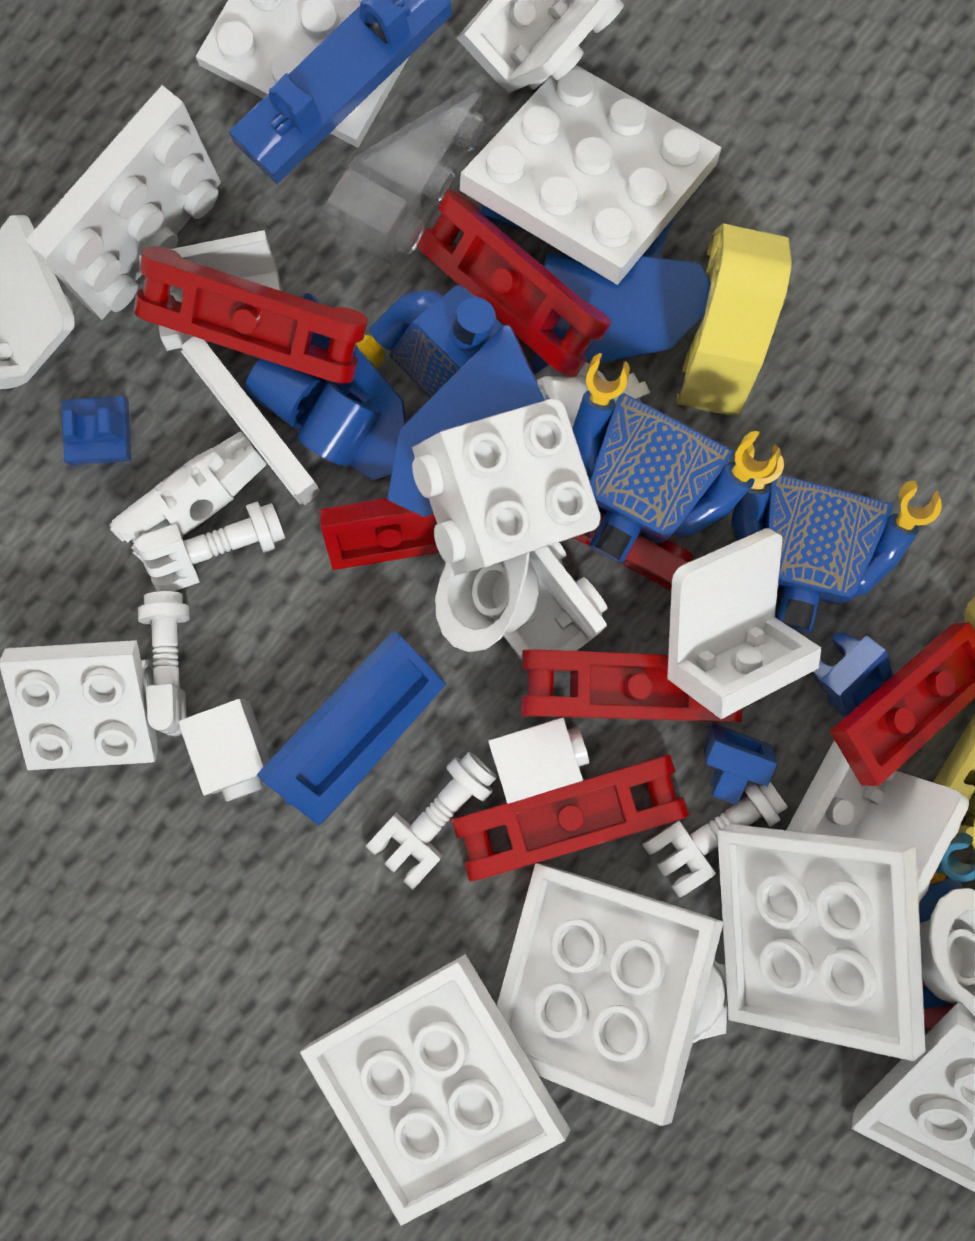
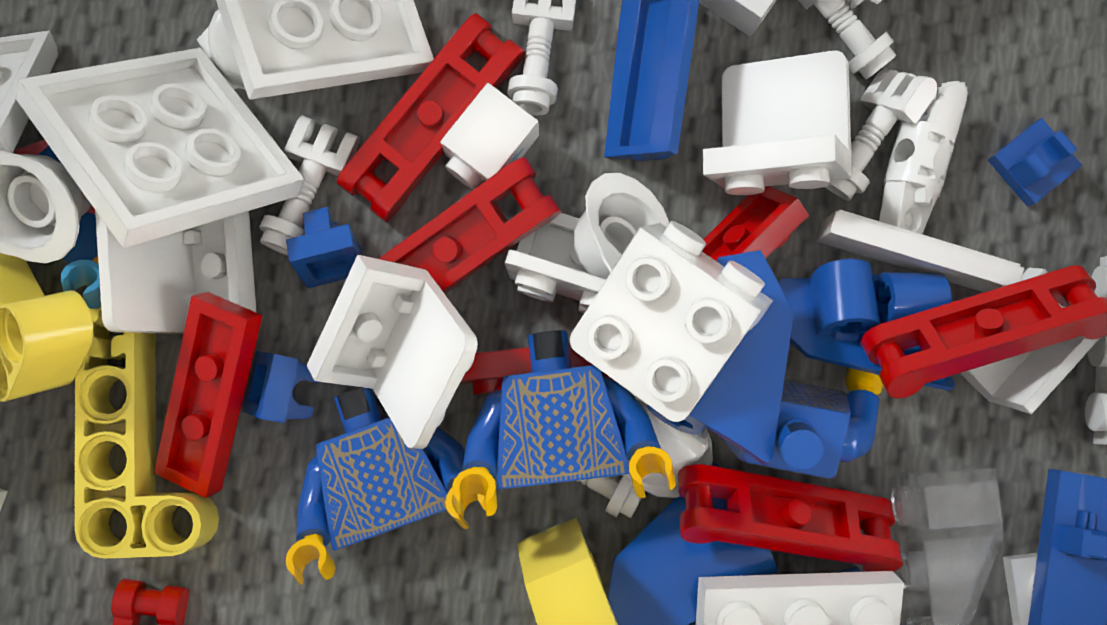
camera: 145 degrees right, 0 degrees up
(284, 598) = (783, 124): none -> white bracket

